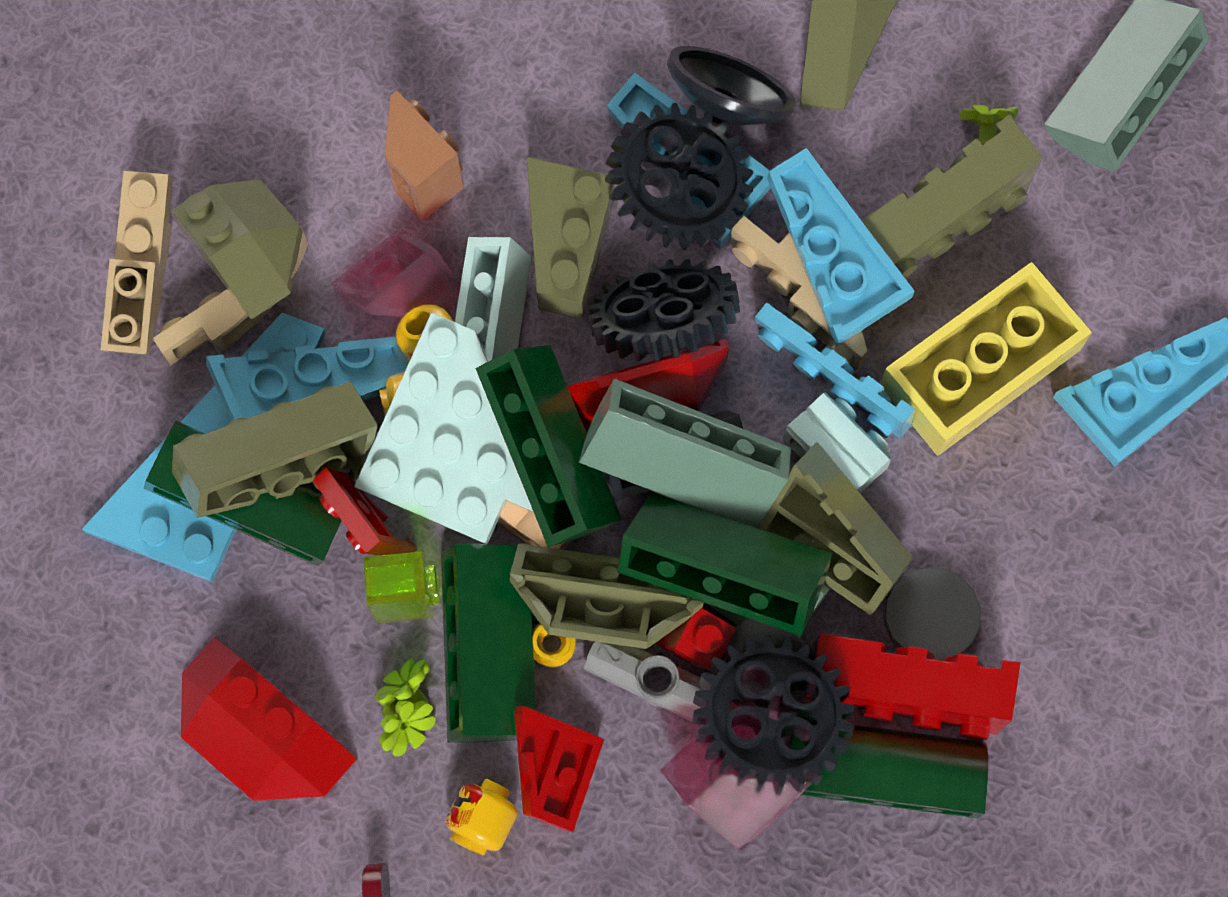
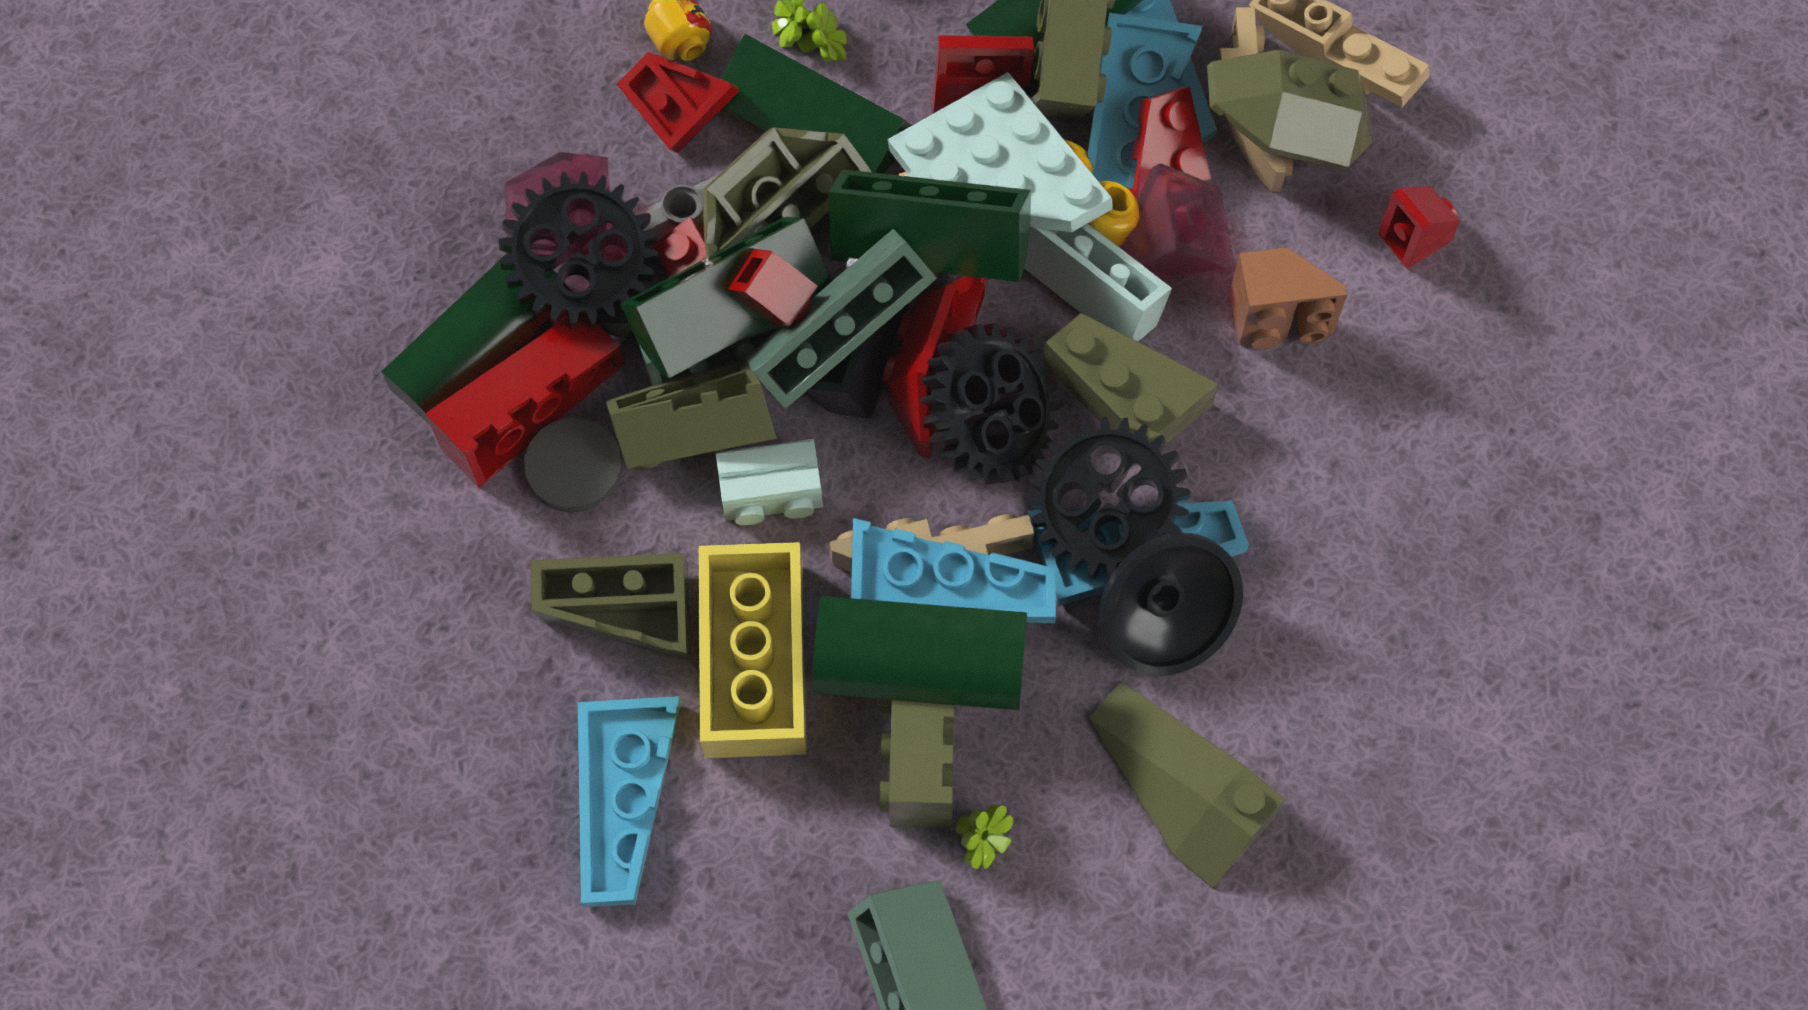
camera: 125 degrees right, 5 degrees down
(275, 103) = (1417, 223): none -> red slope
(331, 328) = (1168, 136): none -> red wing
(401, 587) = (900, 62): clear neon green brick -> none
(705, 514) = (773, 288): none -> brick
(866, 393) = (827, 515): medium azure wing -> none
(911, 216) = (919, 652): none -> dark green brick
(1021, 487) = (618, 598): none -> olive wedge

